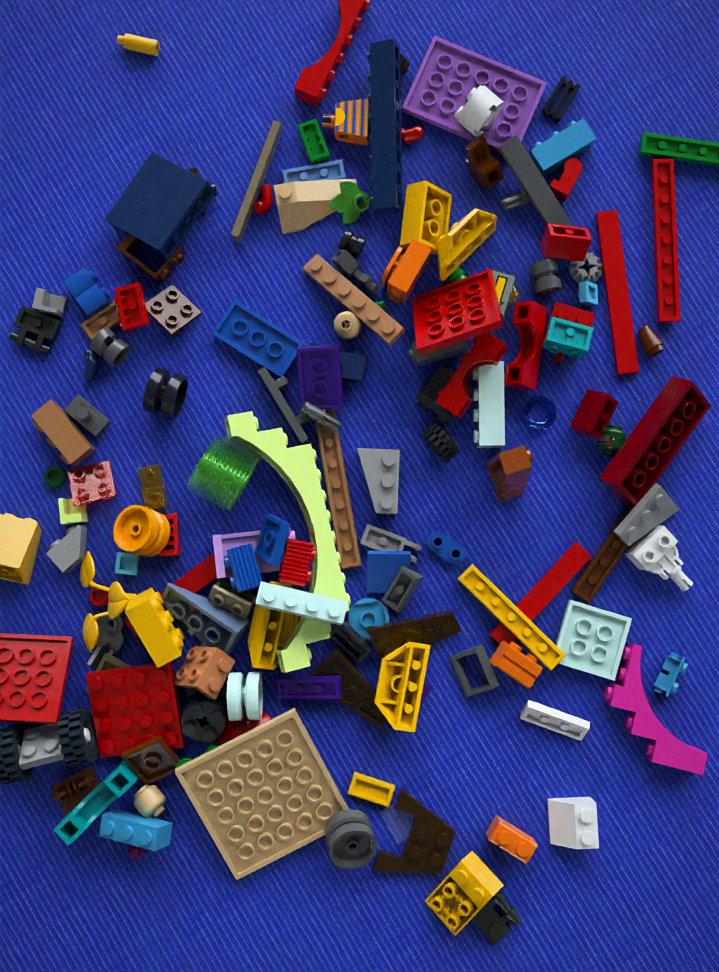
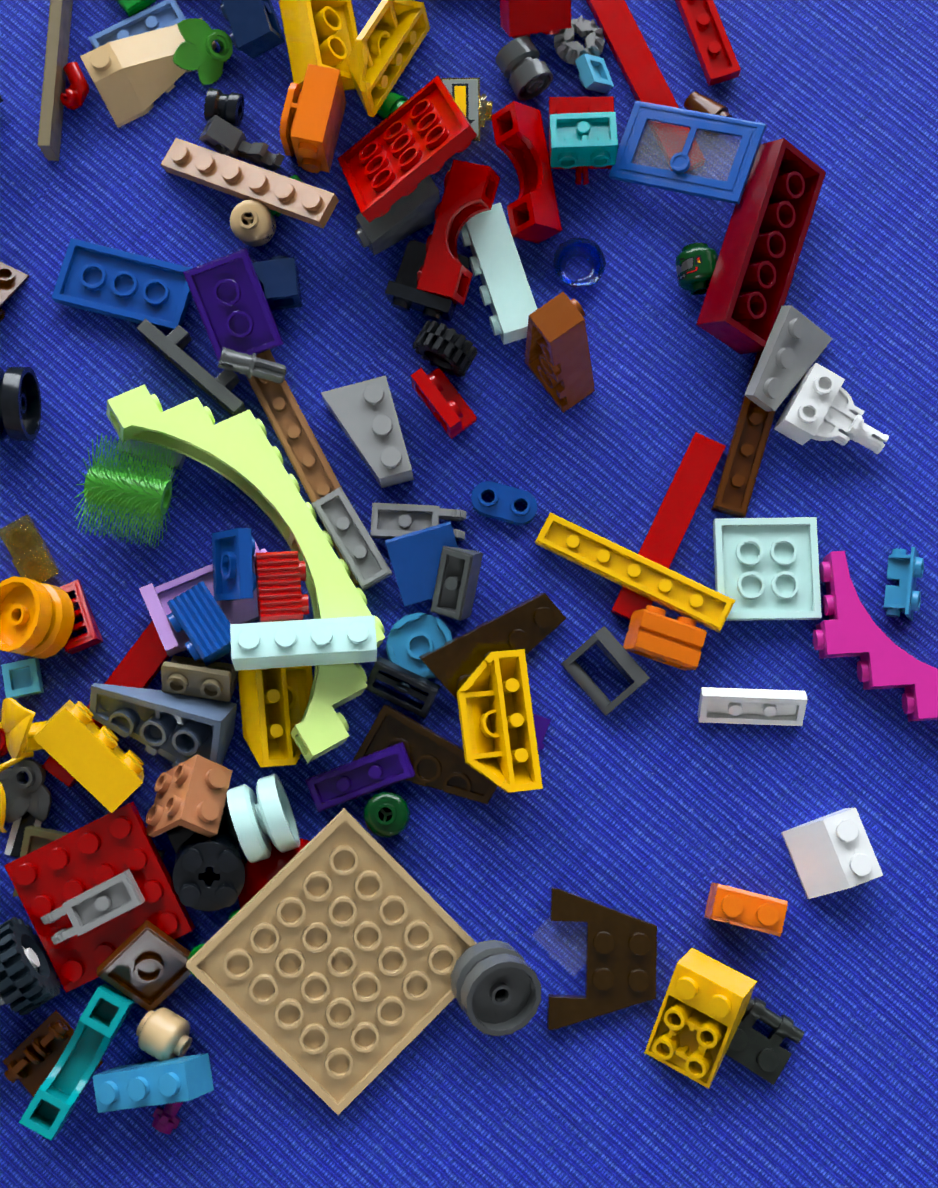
camera: 15 degrees left, 5 degrees down
(132, 717) = (97, 905): none -> light grey hinge
(316, 708) = (399, 811): none -> dark green head
(348, 542) = (352, 538): none -> light grey tile
(371, 789) = (506, 905): yellow tile -> none
(429, 474) = (443, 401): none -> red bracket
(594, 414) = (659, 238): dark red brick -> none
(630, 365) = (687, 151): none -> blue door

